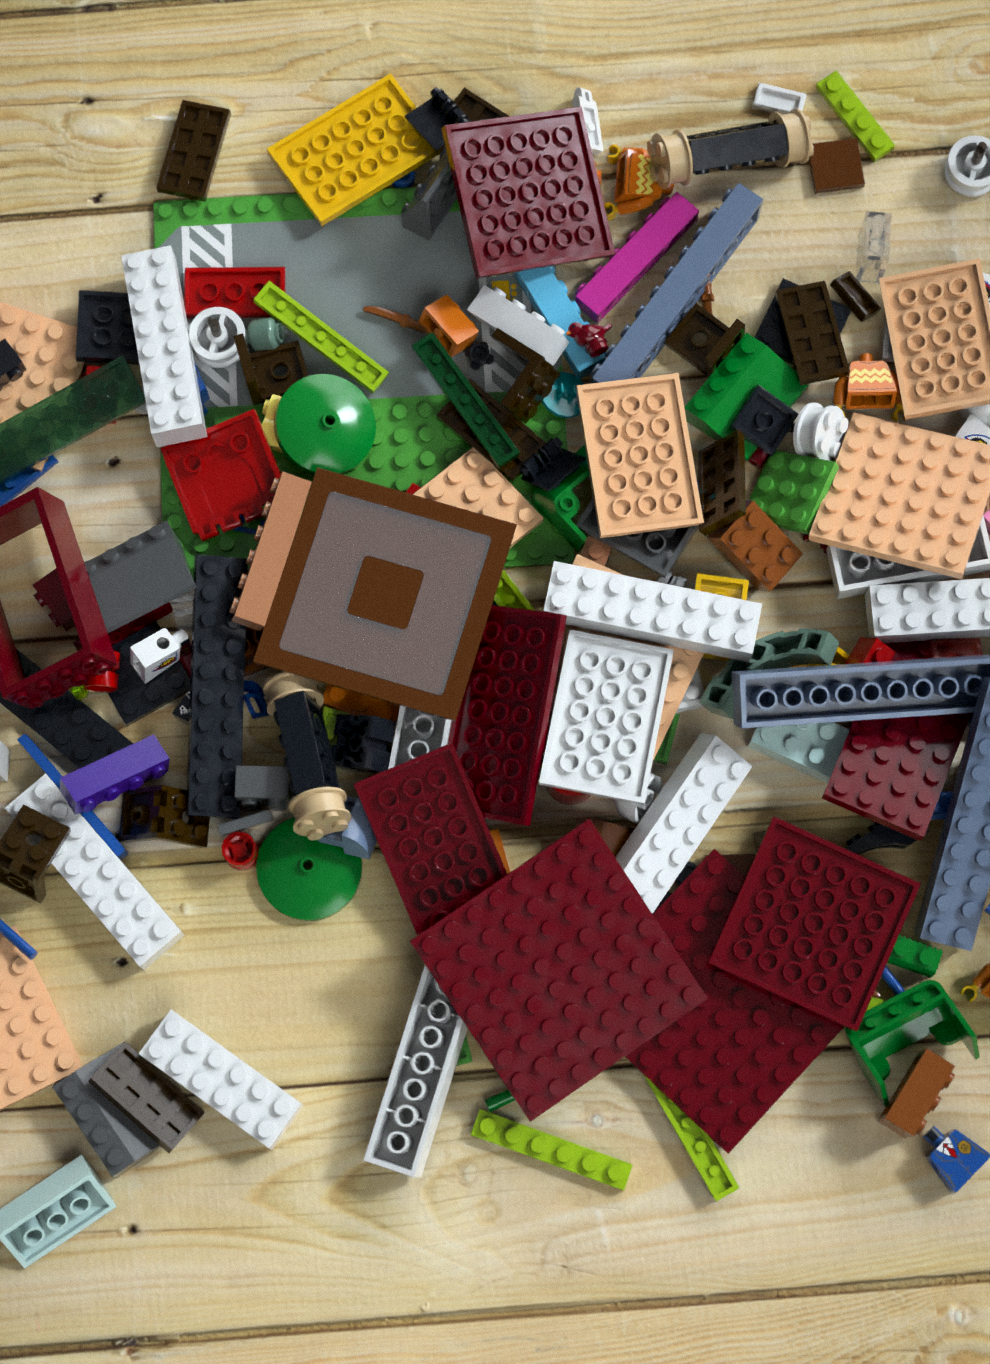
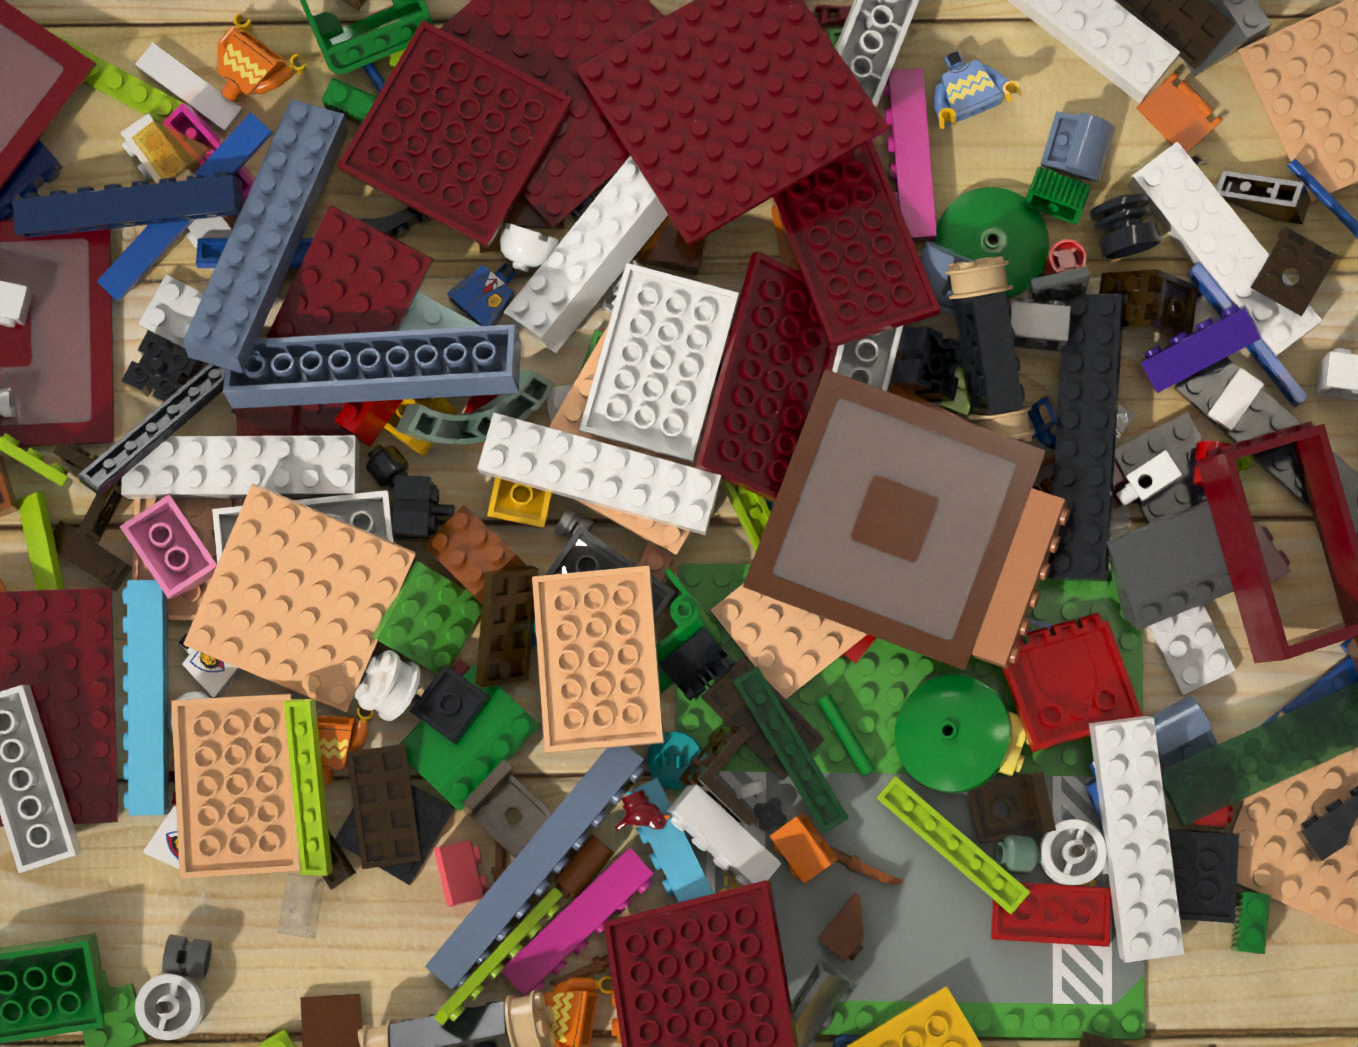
camera: 175 degrees left, 5 degrees up
(59, 927) = (1266, 196): none -> dark brown slope
(65, 294) = (1251, 922): none -> green brick
(83, 734) = (1235, 399): none -> white tile
(116, 515) = (1191, 649): none -> white plate
(127, 443) = (1182, 731): none -> sand blue brick
(137, 1003) = (1178, 113): none -> orange piece
(187, 888) = (1123, 221): none -> black wheel
(232, 962) = (1078, 145): none -> sand blue brick
(249, 913) = (1057, 195): none -> green brick
(336, 1008) = (969, 90): none -> medium blue torso
(387, 943) = (910, 152): none -> dark pink brick
(410, 263) = (845, 931): none -> reddish brown slope
(417, 423) = (846, 734): none -> green piece
(458, 1076) = (823, 15): none -> dark red bar
(498, 372) = (749, 789): none -> white tile
(617, 227) = (597, 966): none -> dark orange piece
(634, 298) = (583, 867): none -> reddish brown brick
(705, 203) = (492, 965): none -> lime plate
(736, 830) = (526, 247): none -> white cylinder
(741, 285) = (460, 873): none -> coral slope
(770, 785) = (484, 294): none -> blue torso
(812, 585) = (416, 508): none -> black brick
(843, 625) = (385, 464): none -> black head
(879, 341) = (308, 787): none -> lime plate
(964, 206) = (197, 956): none -> dark grey wheel

